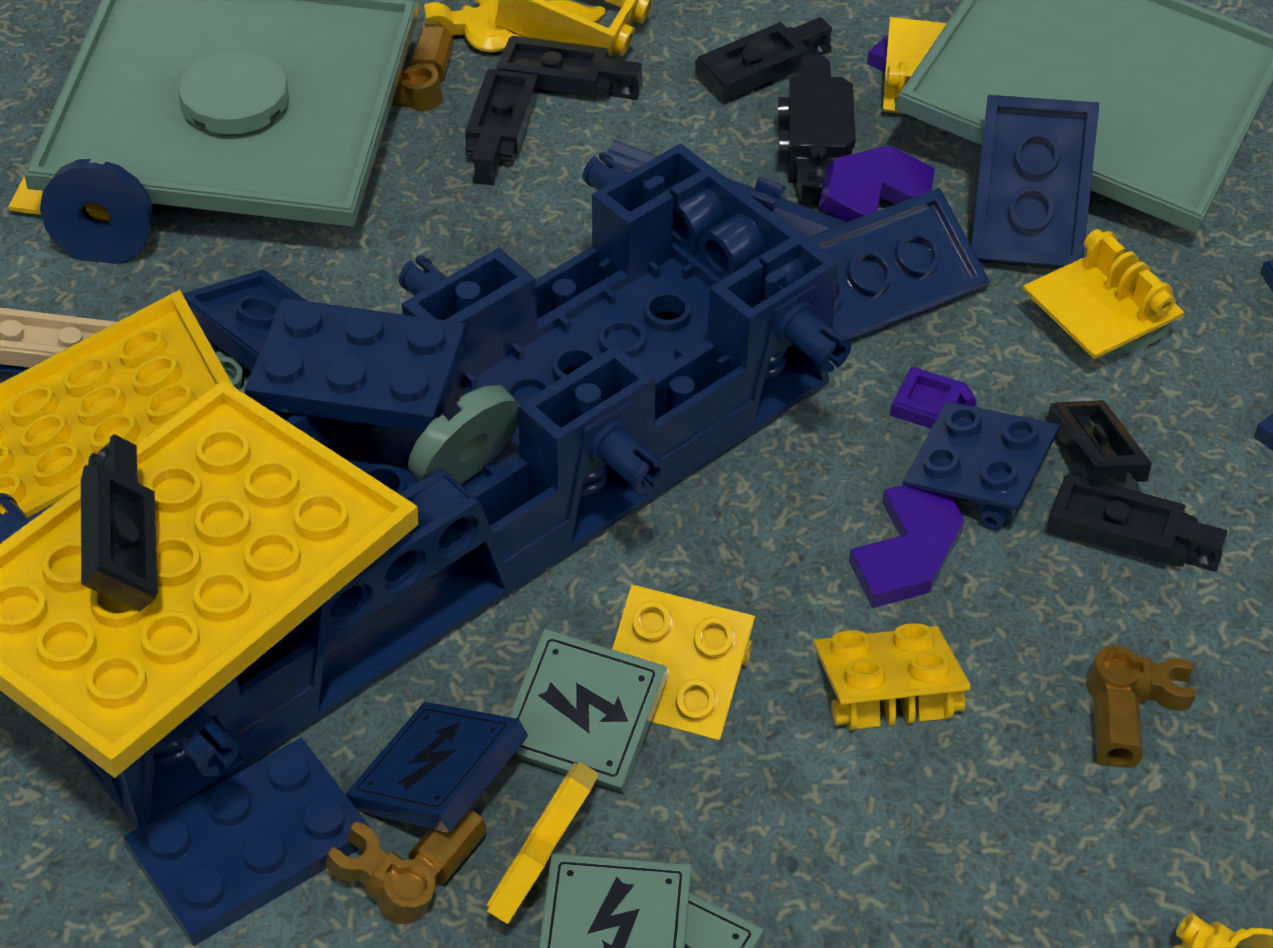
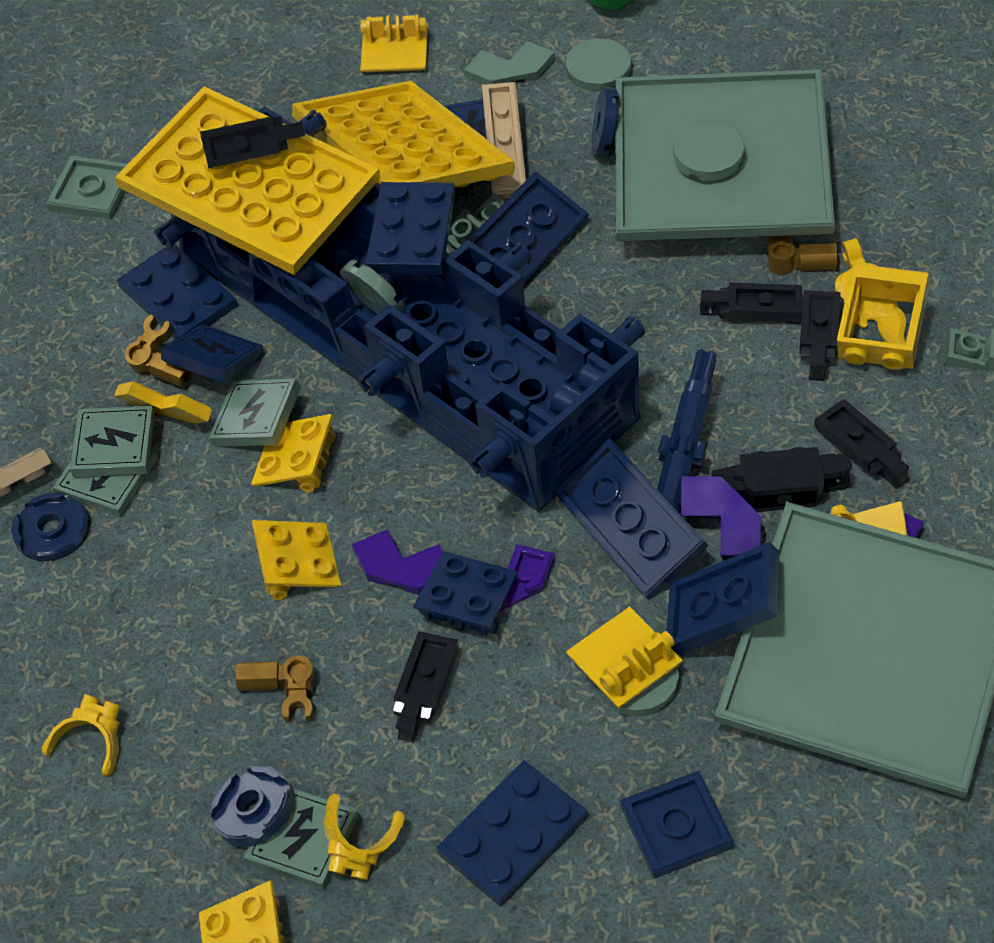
camera: 90 degrees right, 5 degrees up
(1088, 442) = (495, 673): black tile -> none

